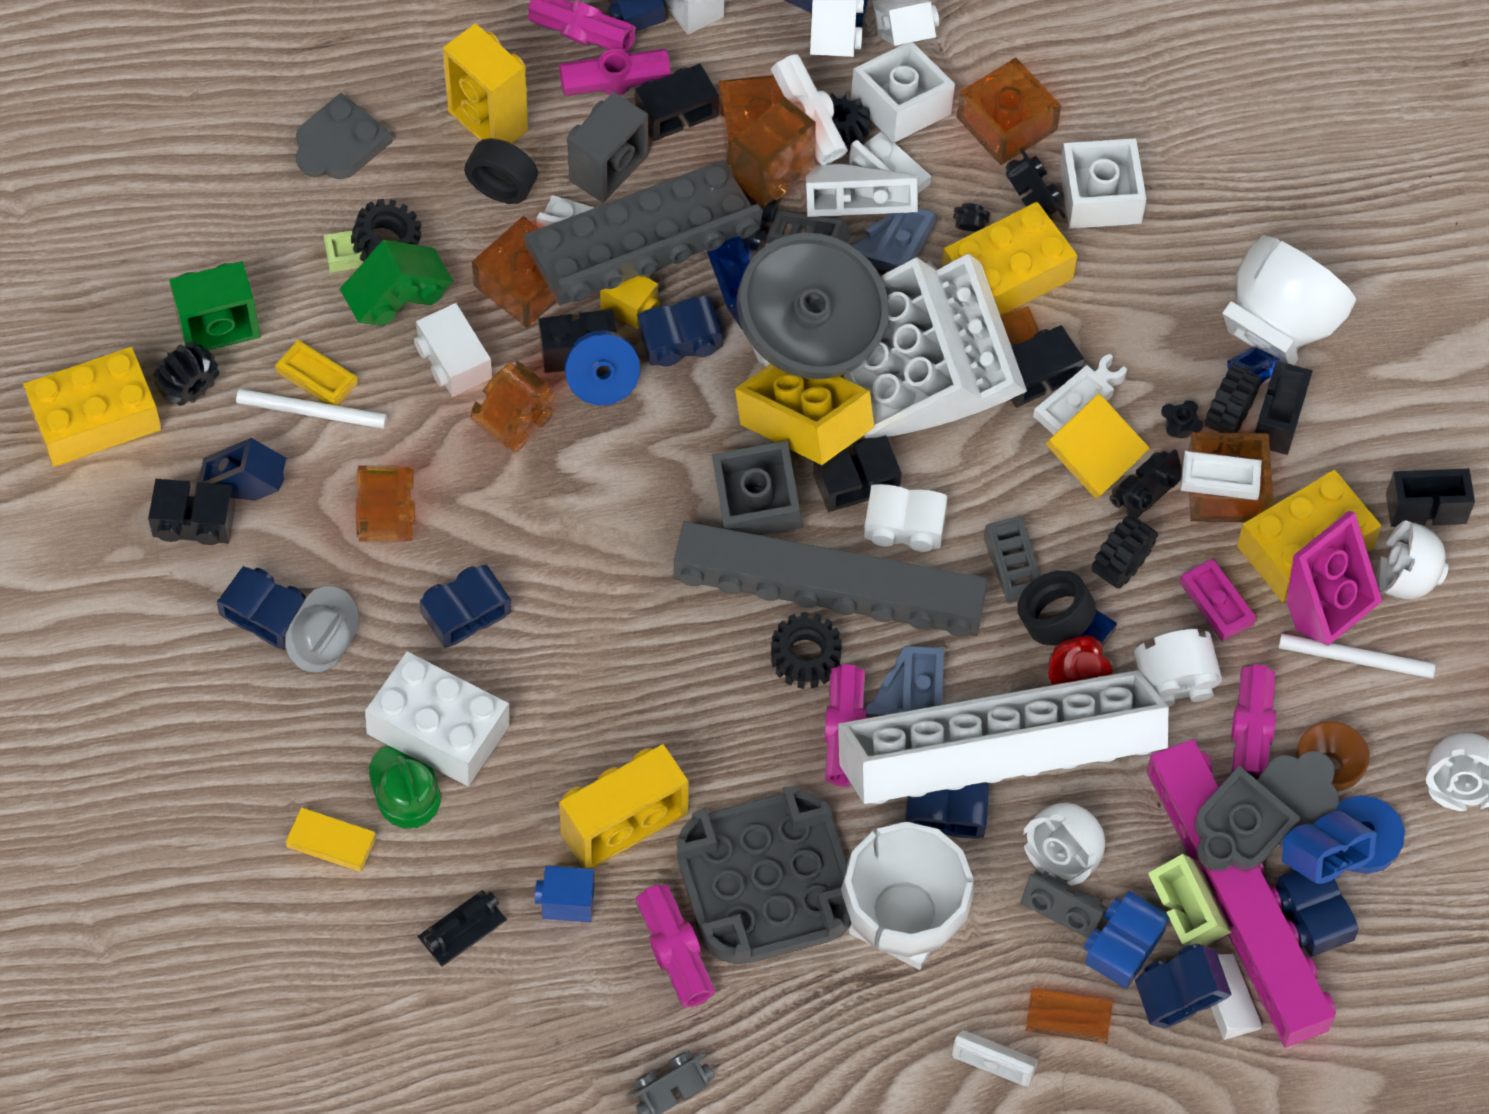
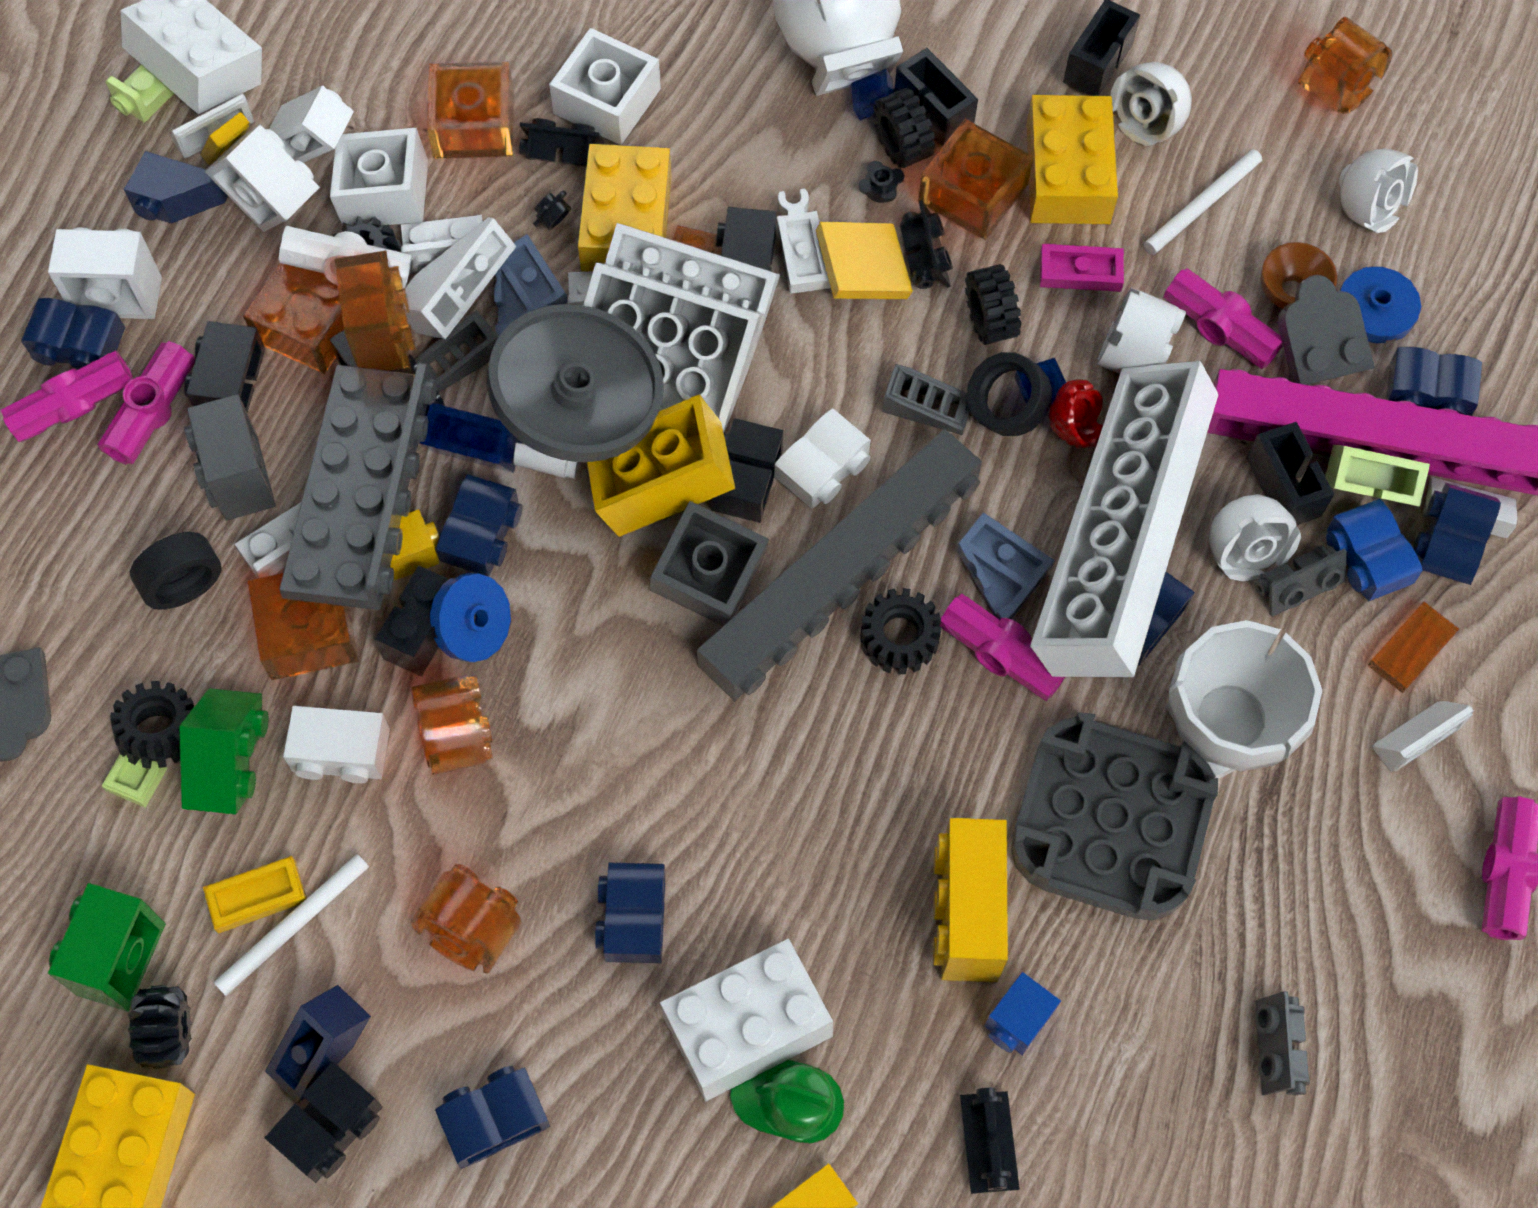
camera: 55 degrees left, 5 degrees up
(322, 629) = (561, 1072): light grey piece -> none
(485, 86) = (76, 521): yellow brick -> none
(675, 946) = (1140, 947): dark pink piece -> none
(1140, 840) = (1278, 461): none -> black piece
(1221, 475) = (984, 178): white tile -> none
(1241, 824) = (1335, 383): dark grey plate -> none
(1328, 847) = (1399, 332): blue brick -> none
(1332, 582) = (1146, 168): dark pink slope -> none

